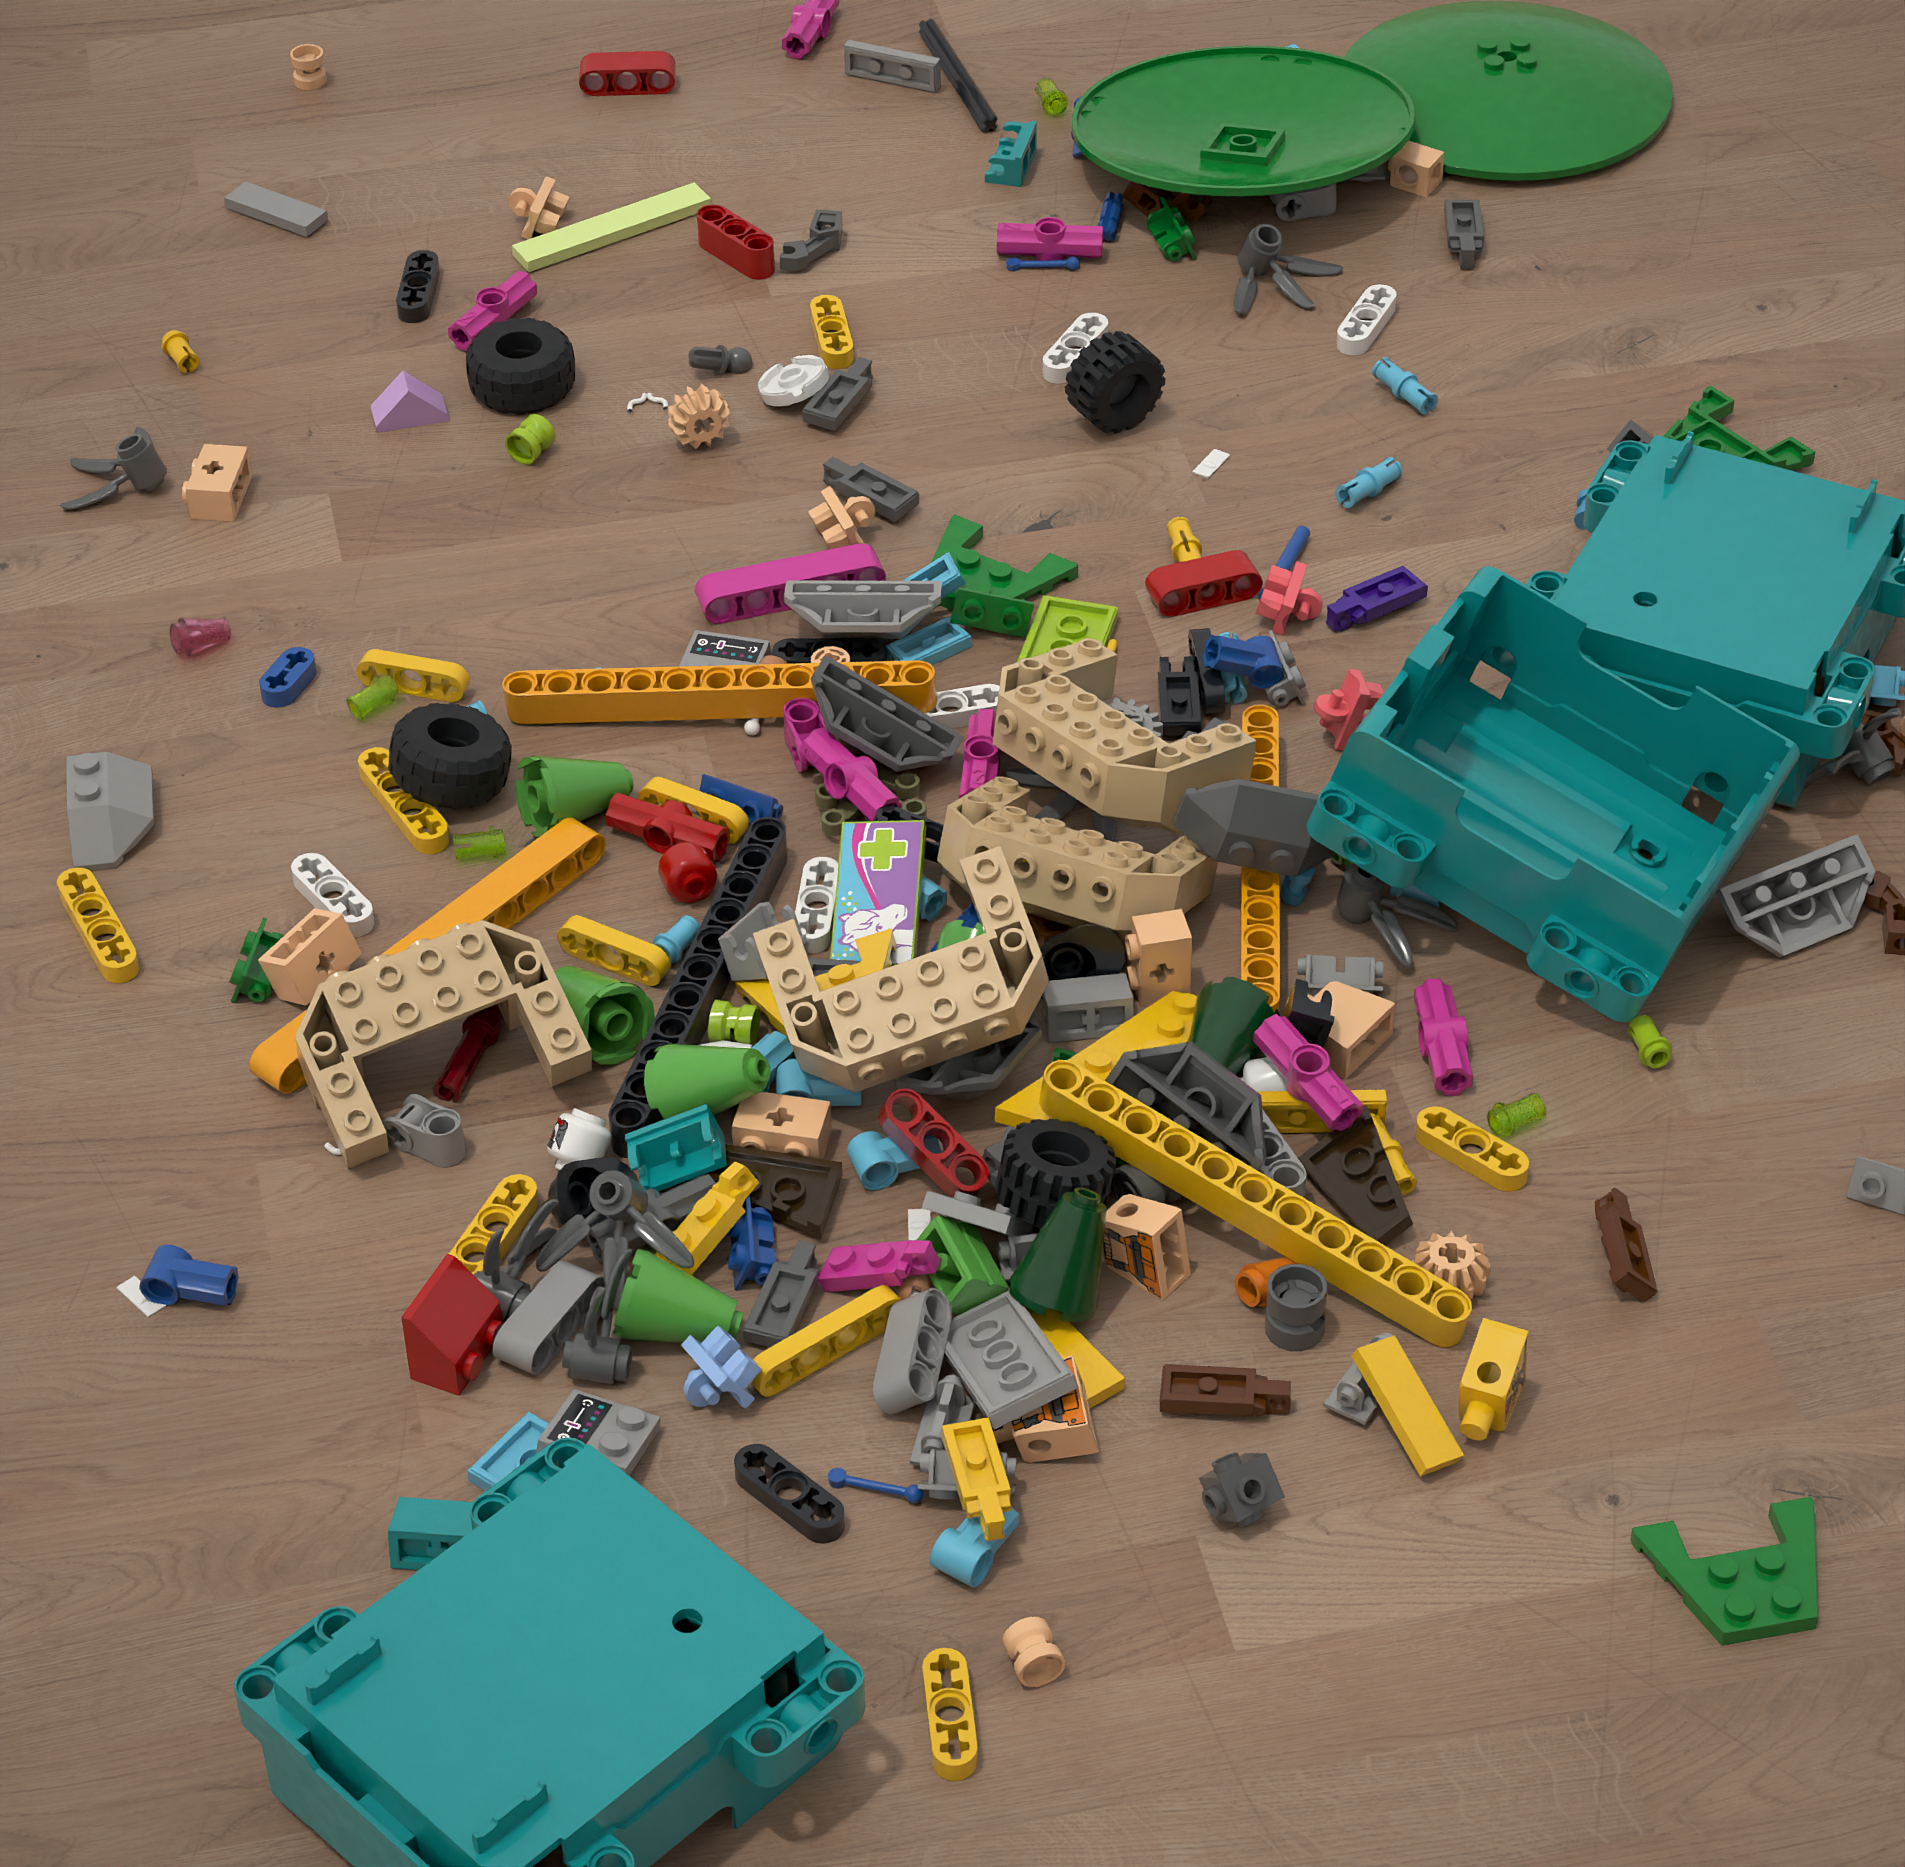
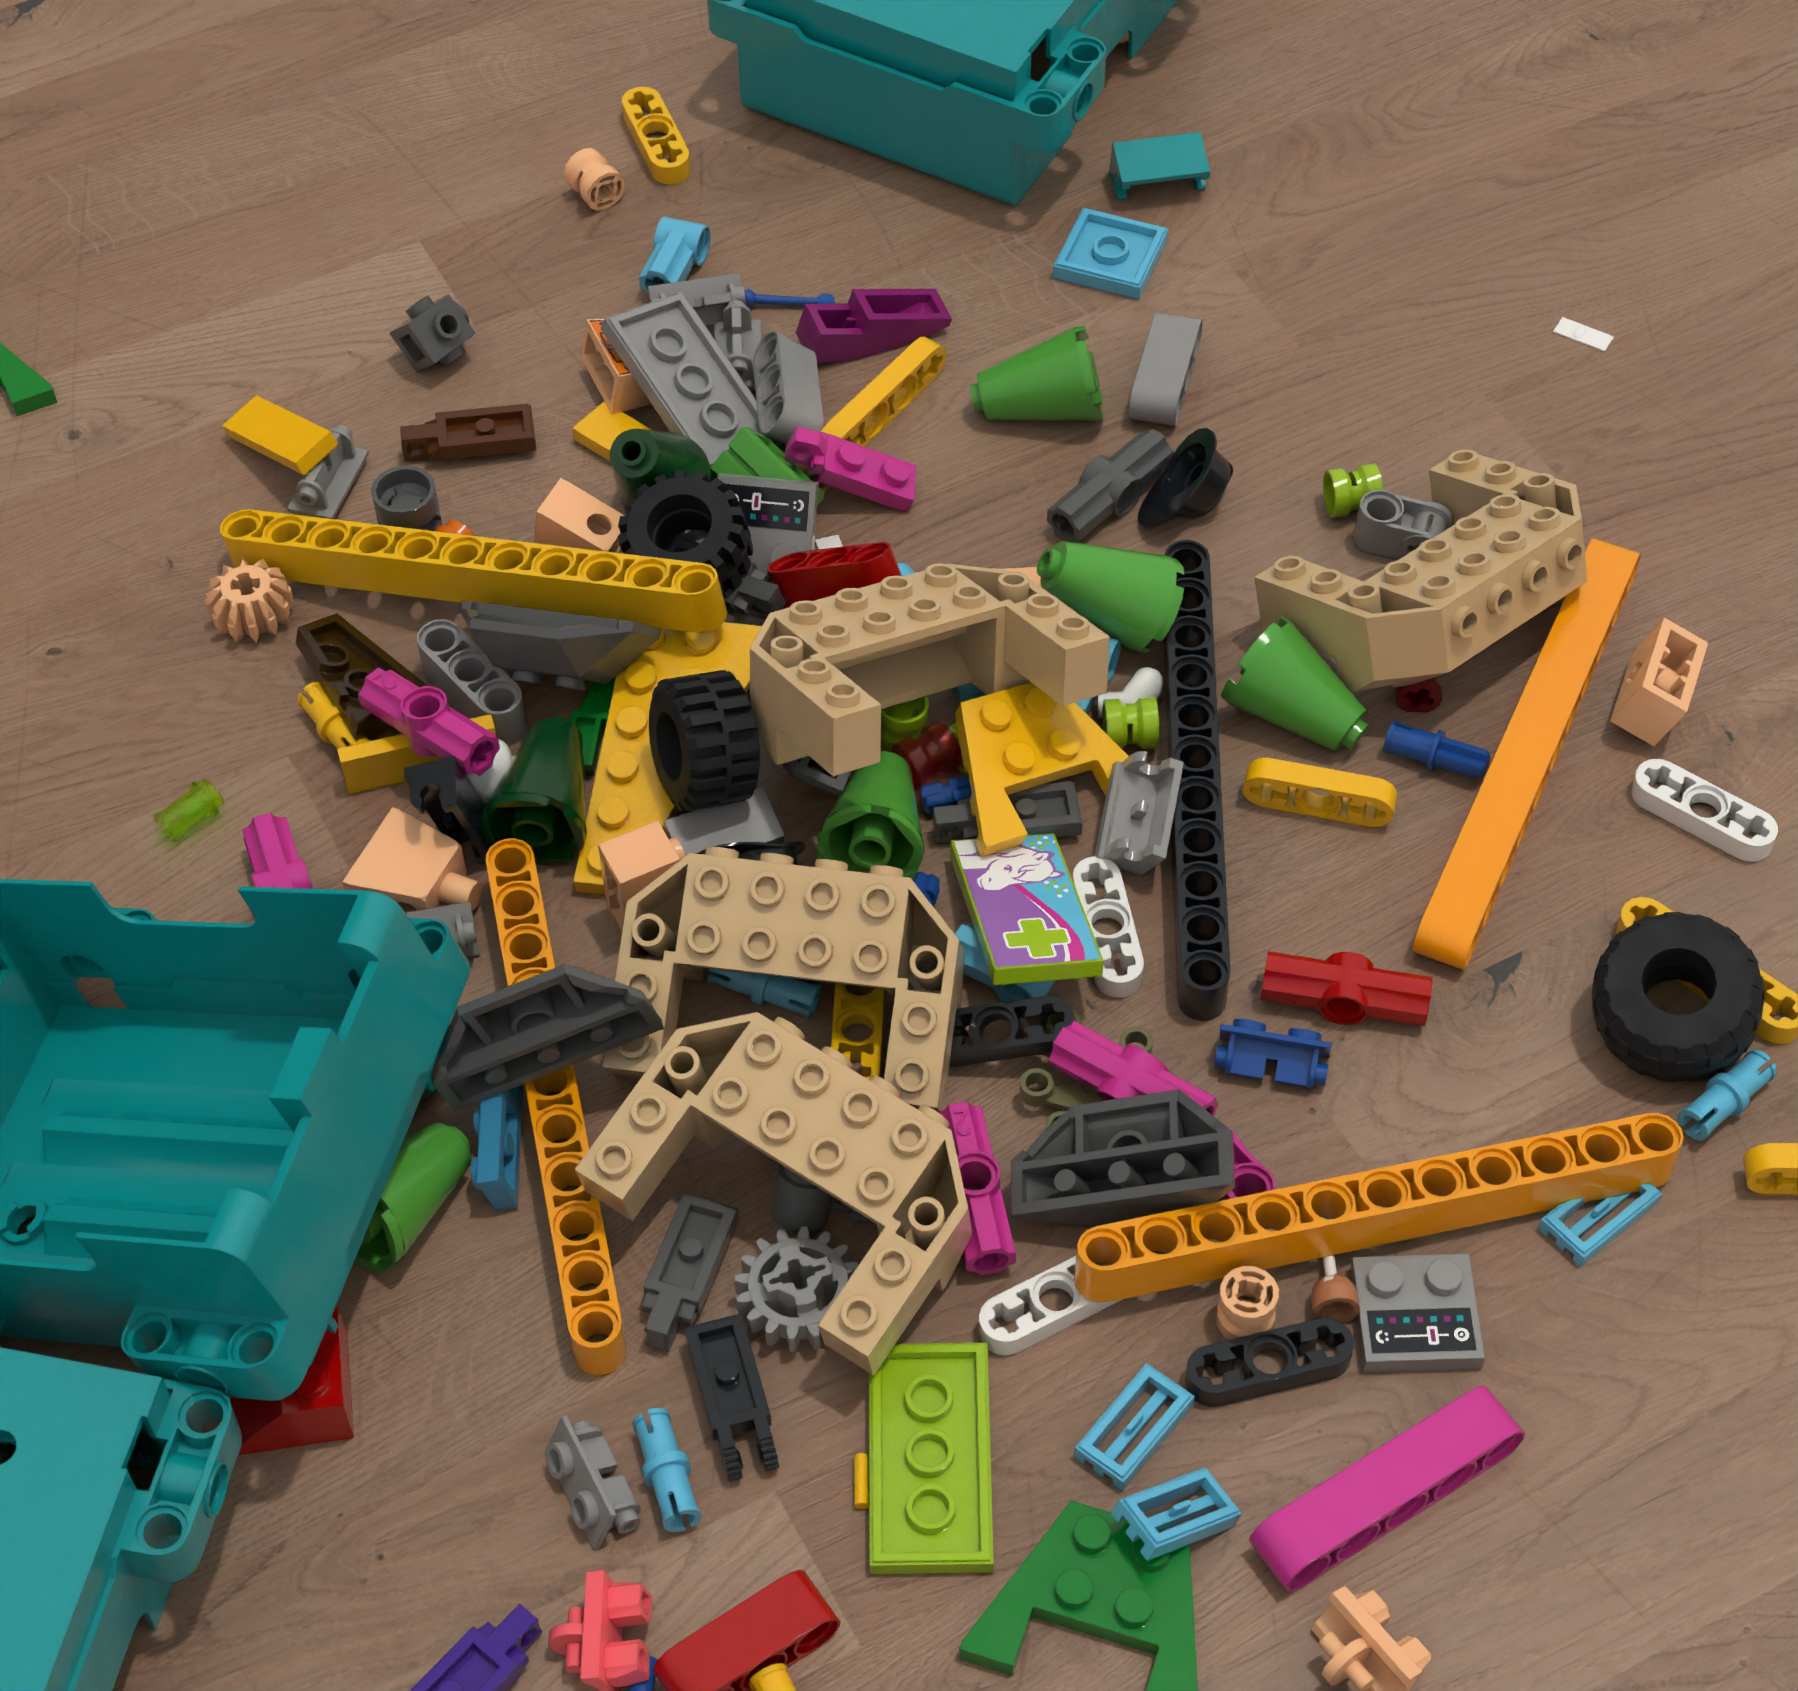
camera: 165 degrees right, 10 degrees up
(176, 1275) = (1556, 332): blue piece -> none
(248, 974) = (1730, 707): green hinge -> none
(448, 1169) = (1345, 489): none -> lime wheel
(450, 1328) = (1244, 317): red slope -> none
(483, 843) = (1559, 919): clear neon green pin -> none
(495, 1209) = (1274, 440): yellow beam -> none
(505, 1283) = (1225, 376): dark grey plant -> none
(567, 788) = (1494, 990): bright green cone -> none
(578, 1138) = (1229, 534): white head -> none
(596, 1356) = (1108, 338): dark grey plant -> none
(611, 1428) = (1060, 270): light grey plate -> none
(624, 1202) = (1135, 414): dark grey plant -> none
(677, 938) = (1257, 819): medium azure pin -> none
(677, 1149) = (1124, 536): teal hinge -> none
(687, 872) = (1285, 918): red head -> none
(709, 807) = (1354, 1026): yellow beam -> none
(715, 1214) = (1049, 469): yellow hinge -> none
(722, 1369) = (970, 335): light blue hips -> none
(751, 1246) = (1009, 497): blue hinge -> none
(783, 1297) = (940, 437): dark grey hinge -> none
(789, 1186) = (990, 544): dark brown wing -> none
(795, 1511) = (835, 261): black beam -> none
(806, 1423) = (871, 322): none -> magenta slope
(863, 607) = (1243, 1395): light grey wedge -> none
(978, 1474) = (680, 259): yellow hinge -> none
(991, 612) = (1033, 1488): green hinge -> none
(1089, 993) = (704, 740): none -> black tyre
(1209, 680) = (702, 1448): black beam -> none
(1250, 658) = (625, 1439): blue piece -> none
(1345, 707) = (464, 1377): coral hips -> none
(1488, 1390) = (189, 461): yellow torso -> none
(1497, 1164) = (250, 780): yellow beam -> none
(1625, 1246) = (60, 668): reddish brown hinge -> none

